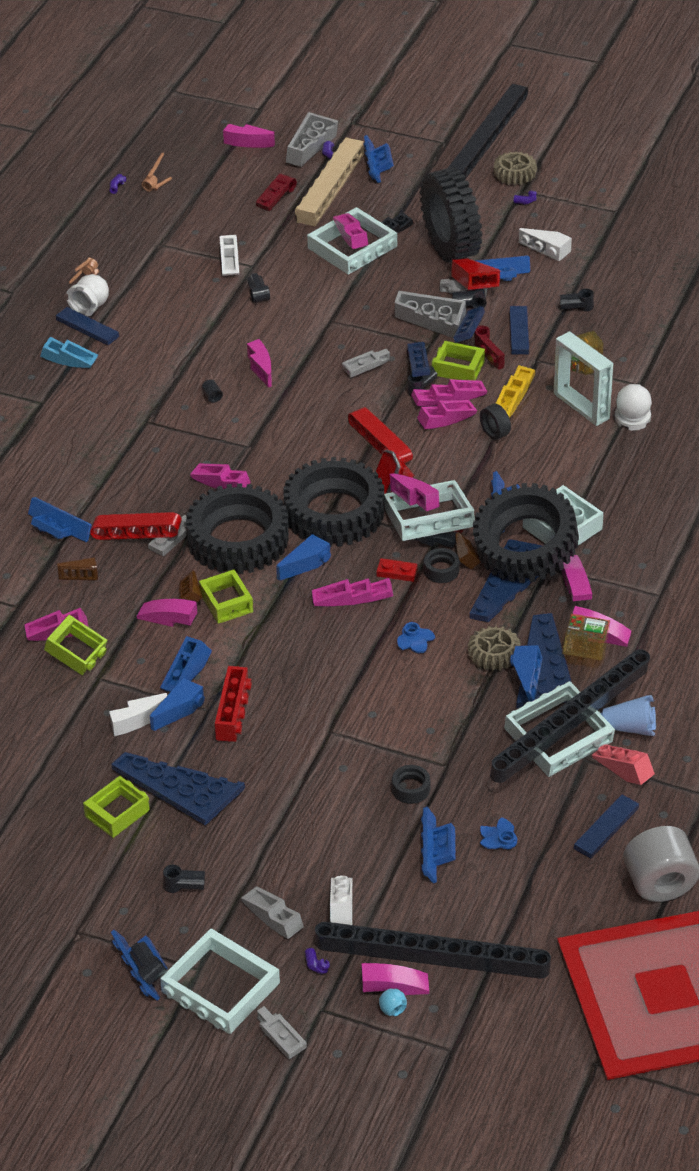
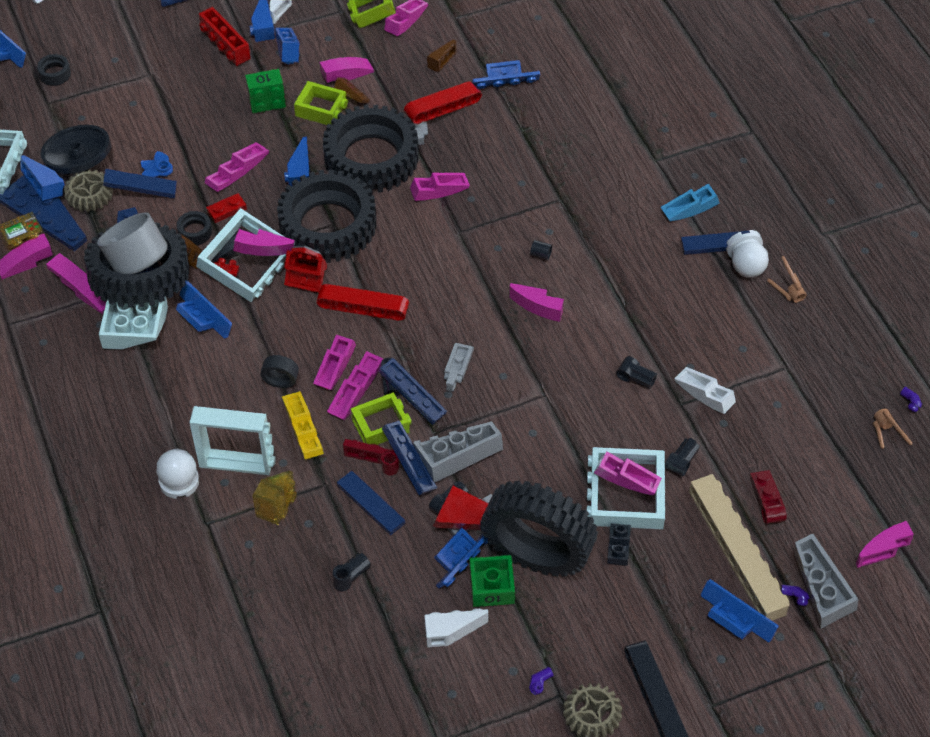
camera: 135 degrees right, 10 degrees up
(261, 624) = (265, 91): none -> green brick
(295, 235) = (681, 459): none -> black piece
(448, 621) = (139, 183): none -> dark blue tile
(470, 683) = (76, 149): none -> black dish
(499, 241) = (492, 581): none -> green brick
(531, 496) = (133, 244): none -> light grey piece

